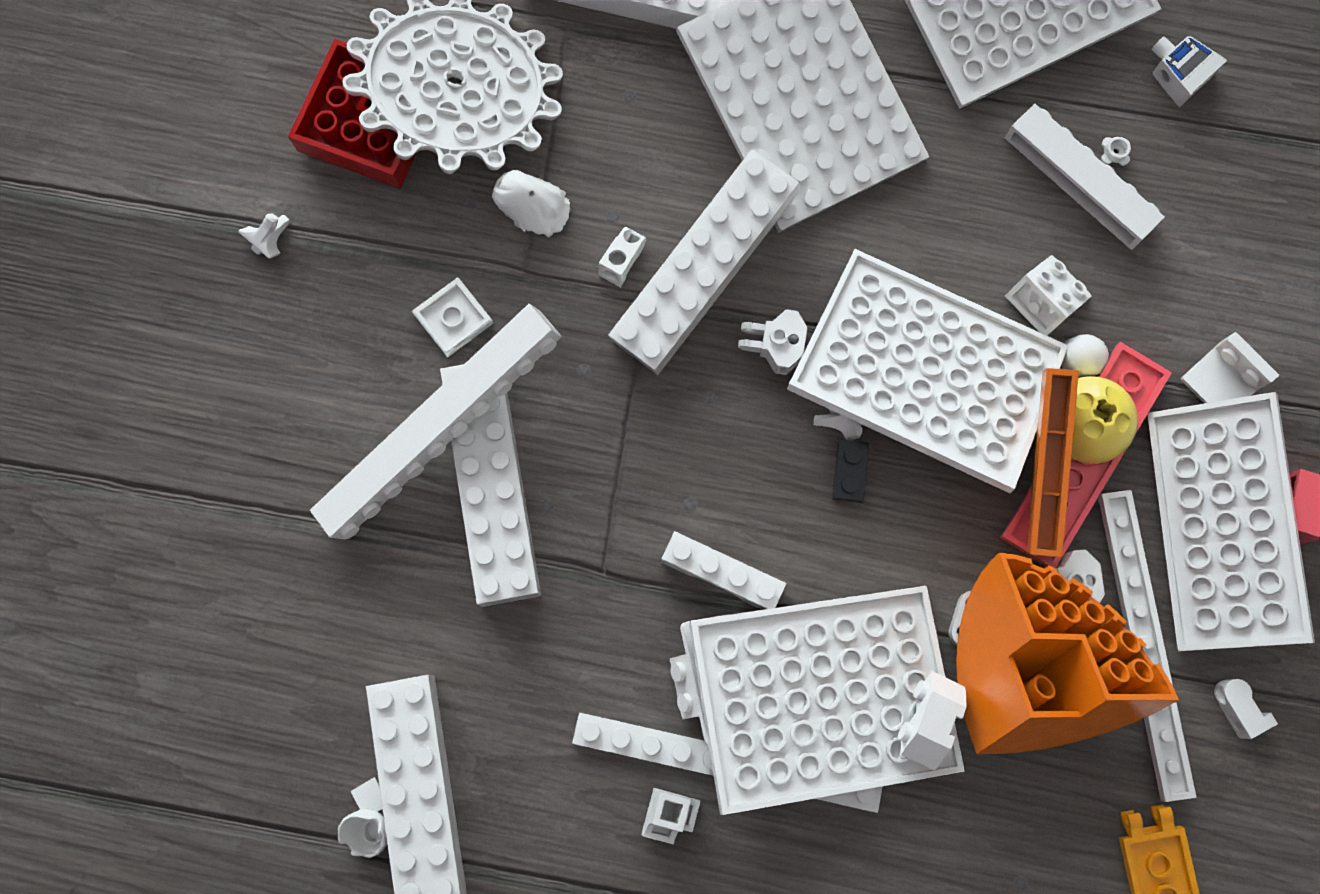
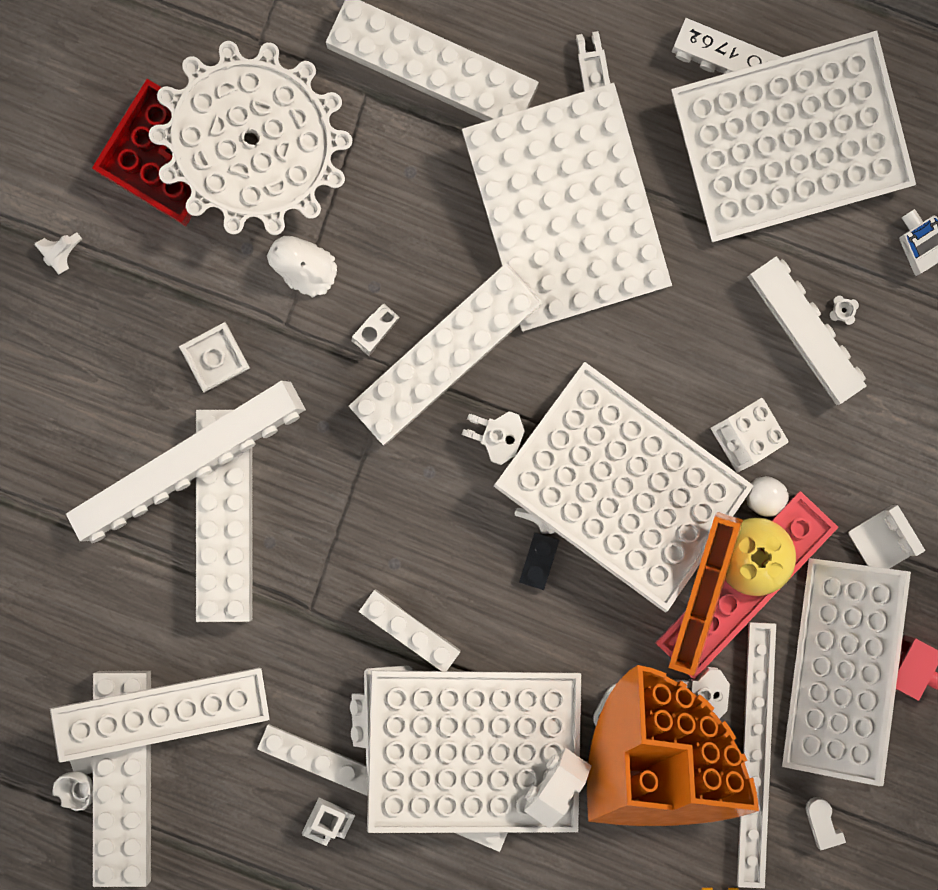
camera: 10 degrees right, 10 degrees up
(446, 720) = (159, 714): none -> white plate

